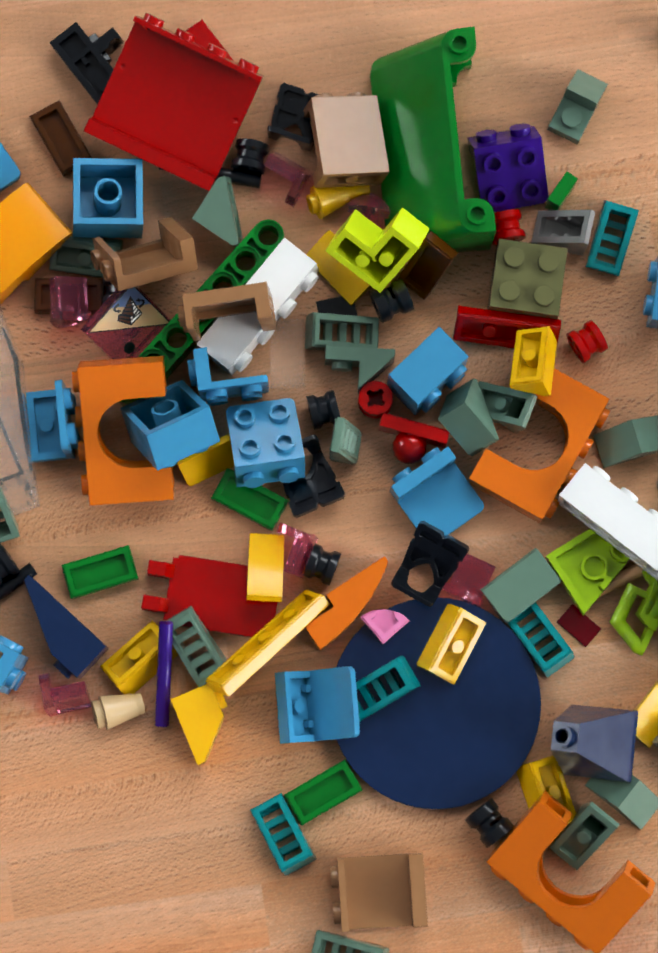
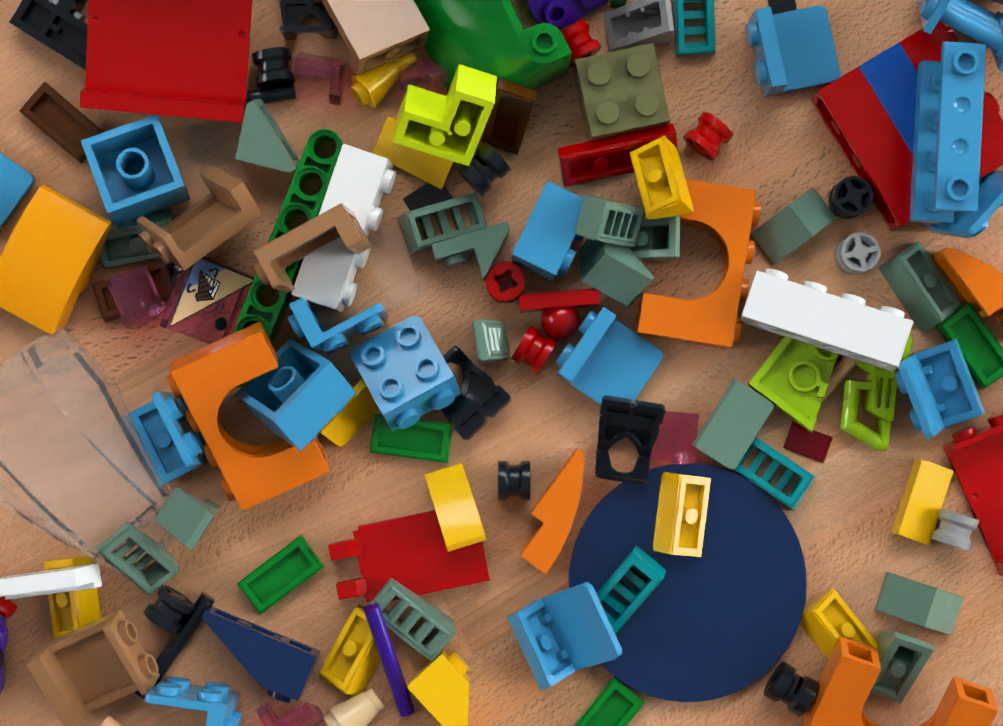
camera: 20 degrees left, 5 degrees up
(43, 492) = (186, 516): none -> sand green slope
(267, 642) = (487, 588): yellow tile -> none
(300, 550) = (486, 474): clear pink tile -> none
(323, 409) = (454, 313): black wheel -> none
(378, 463) = (534, 350): none -> red wheel
(384, 623) = (603, 518): bright pink tile -> none
(465, 370) = (609, 221): none -> sand green slope
(595, 742) = (875, 562): dark blue slope -> none

